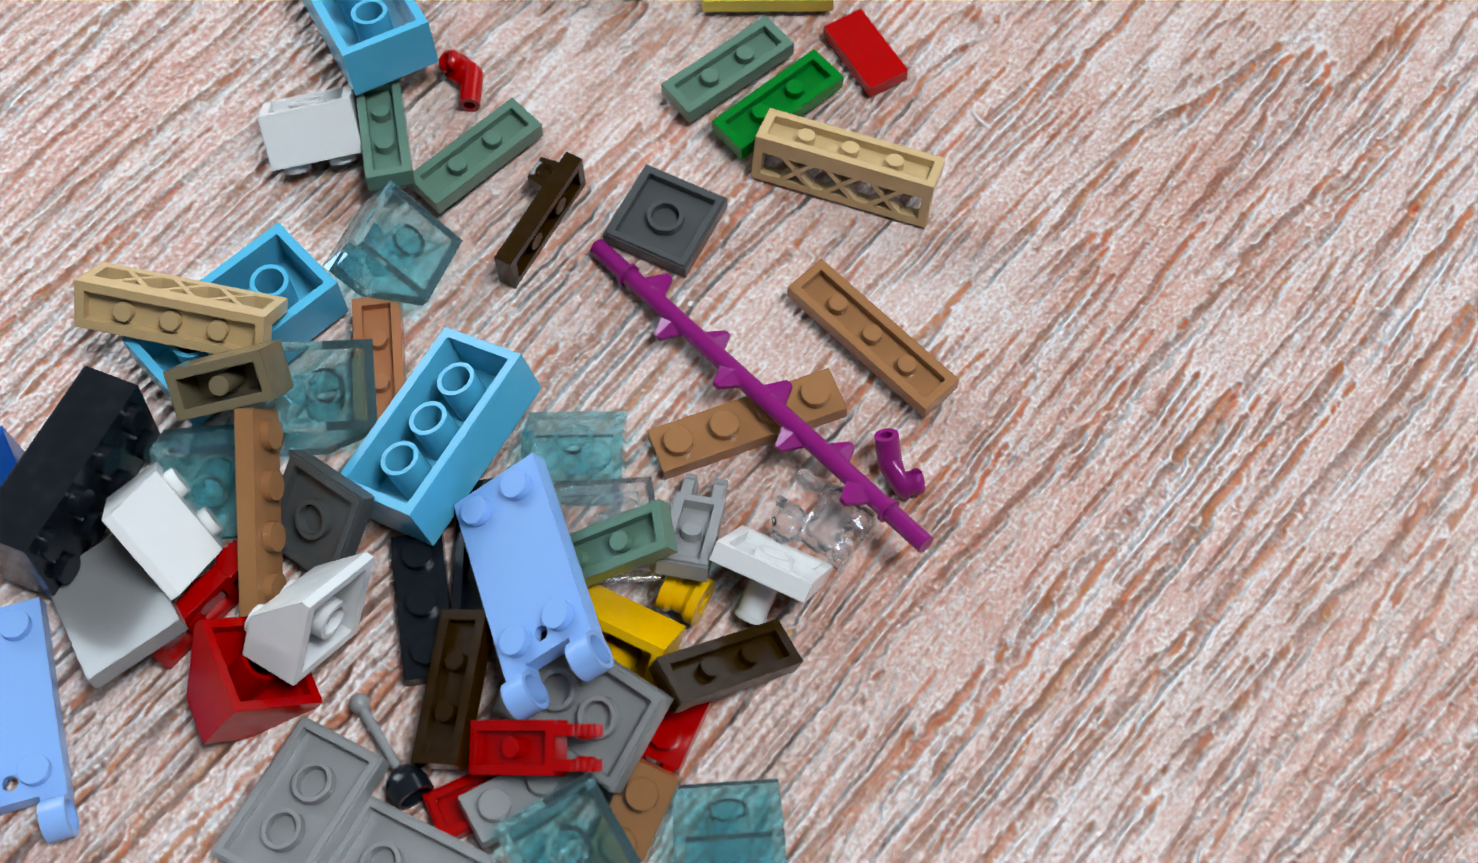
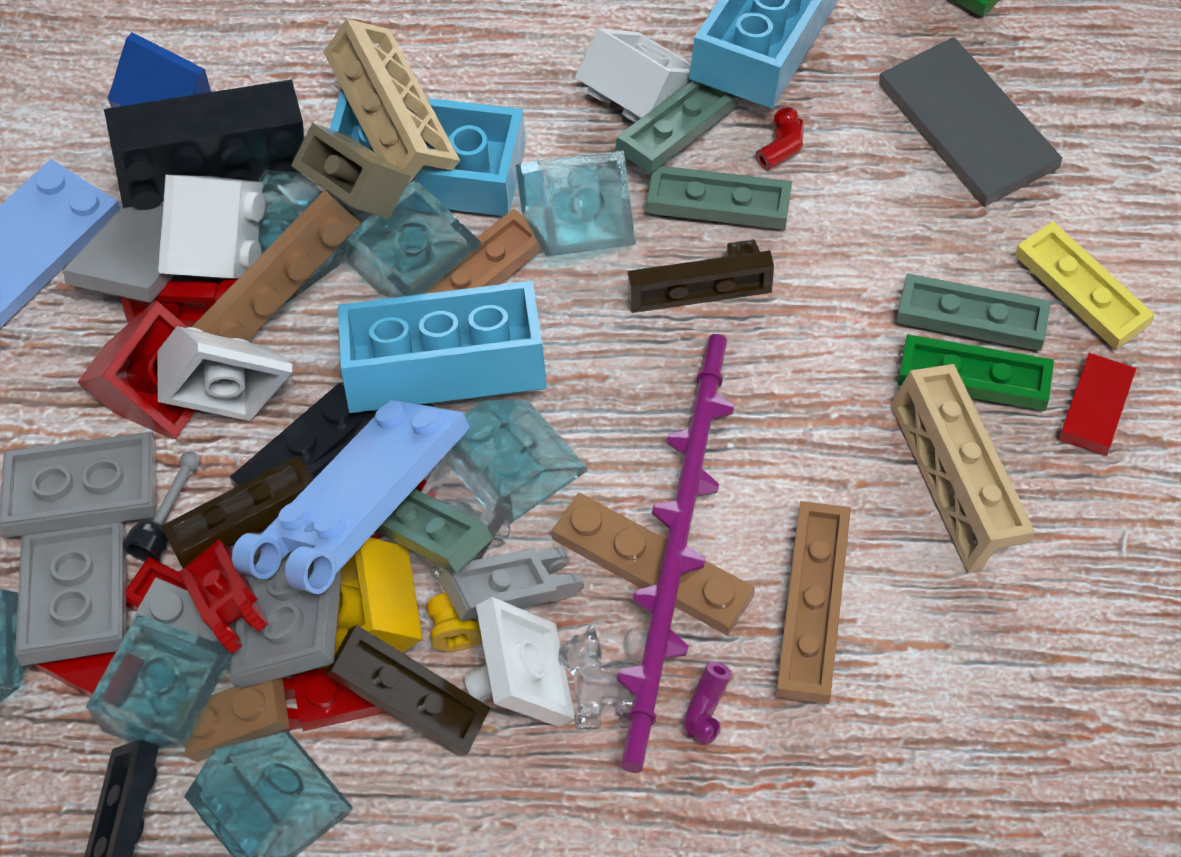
camera: 55 degrees right, 5 degrees down
(321, 512) = (312, 316): dark grey tile -> none
(665, 220) = (788, 371): dark grey tile -> none

